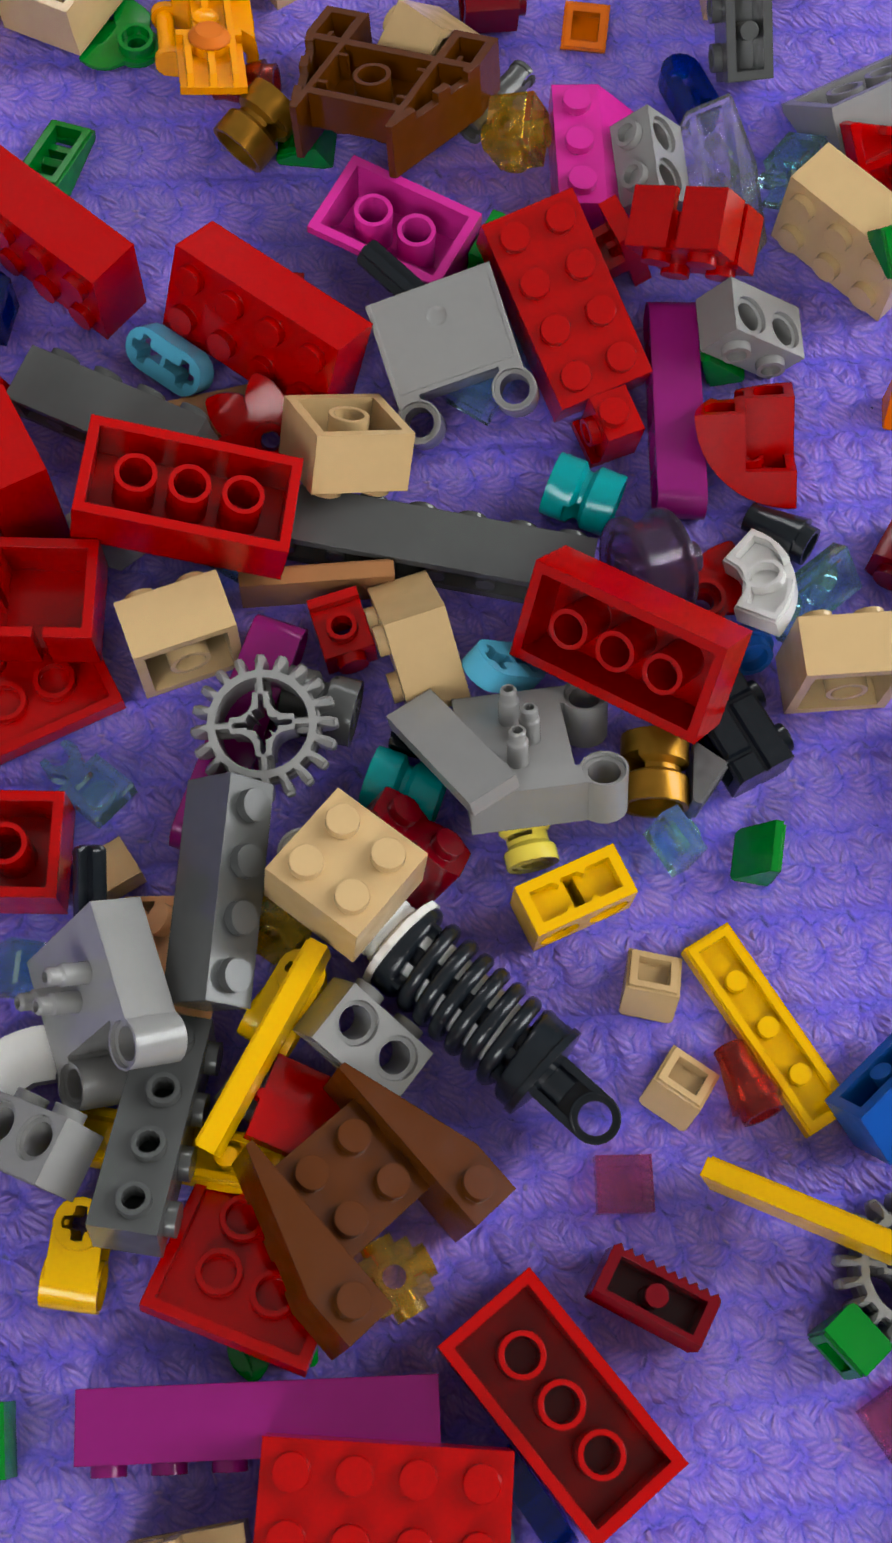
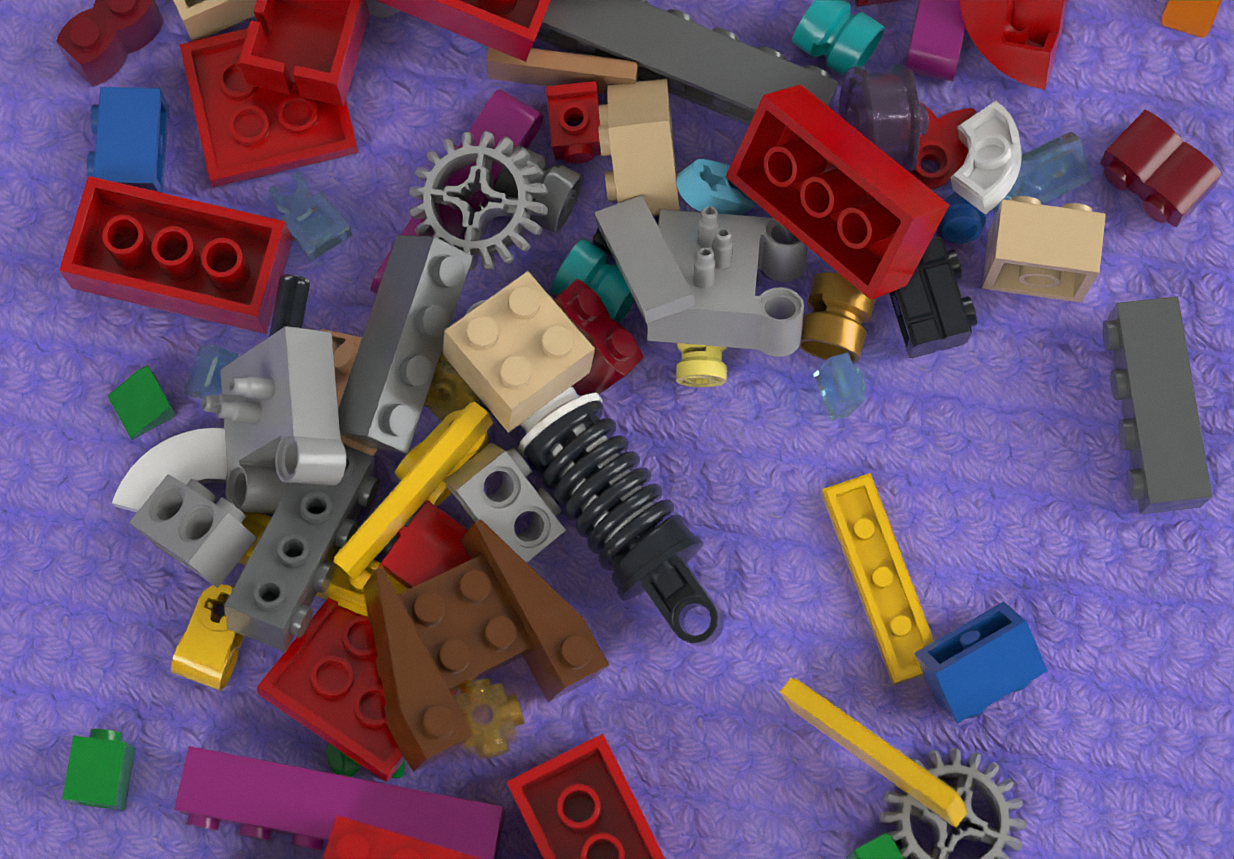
camera: 20 degrees right, 5 degrees up
(122, 870) = (322, 304): tan slope -> none
(179, 631) = (420, 93): tan brick -> none
(573, 897) = (728, 418): yellow brick -> none
(624, 1184) = (713, 687): clear pink tile -> none
(651, 986) = (784, 515): tan slope -> none
(653, 1298) = (708, 787): dark red brick -> none
(679, 1088) = (786, 613): tan slope -> none
(704, 775) = (884, 334): flat silver slope -> none
(747, 1084) = (848, 624): clear red cone -> none
(758, 853) = (916, 415): green slope -> none
(789, 530) = (1032, 113): black cone -> none

